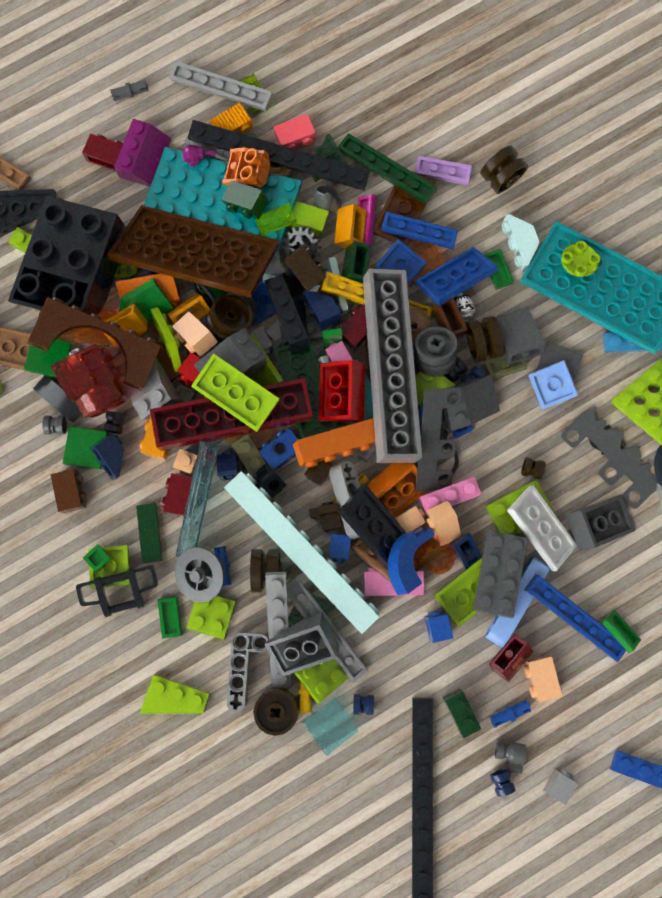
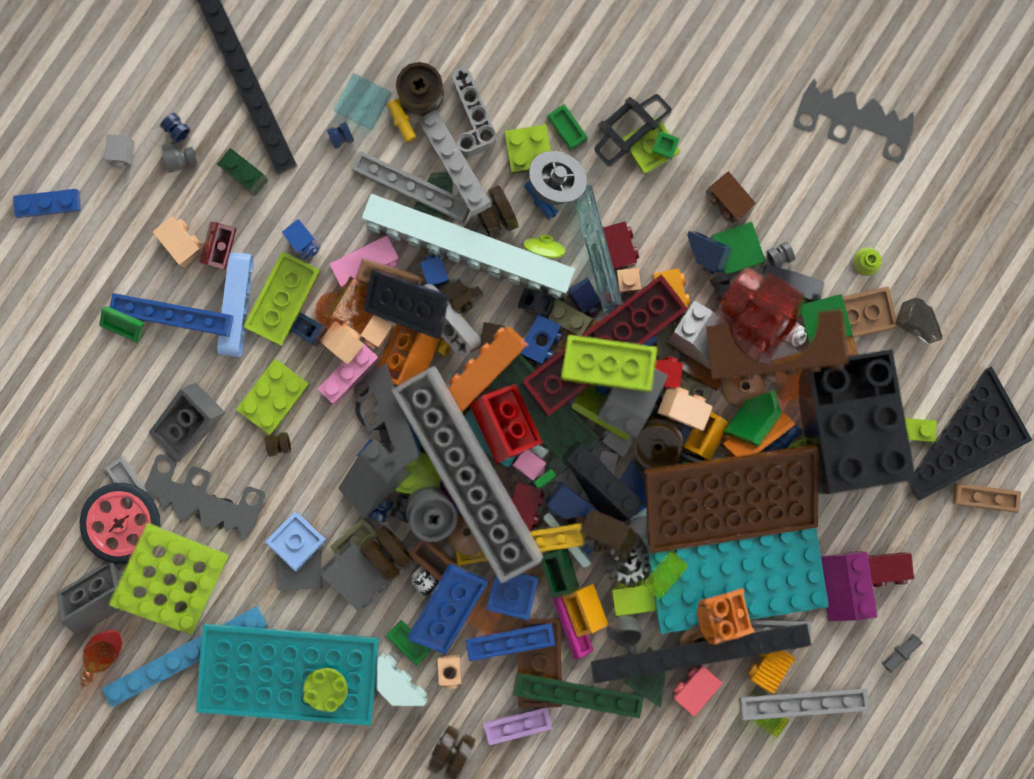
camera: 150 degrees right, 5 degrees up
(129, 319) = (762, 392): light orange piece -> none
(149, 533) = (629, 196): dark green tile -> none
(166, 334) = (714, 397): lime wing -> none
(172, 697) = (525, 56): lime wing -> none
(193, 154) = (791, 608): magenta piece -> none
(240, 522) = (544, 247): none -> lime dish
(245, 200) = (707, 578): piece -> none
(303, 645) = (421, 158): dark grey slope -> none
(322, 679) = (394, 142): lime plate -> none
(401, 560) = (366, 285): blue arch -> none
(472, 239) = (449, 661): none -> light nougat brick
(500, 574) = (263, 317): dark grey brick -> none
(510, 713) = (196, 194): blue pin -> none
(542, 528) = (242, 385): white tile -> none

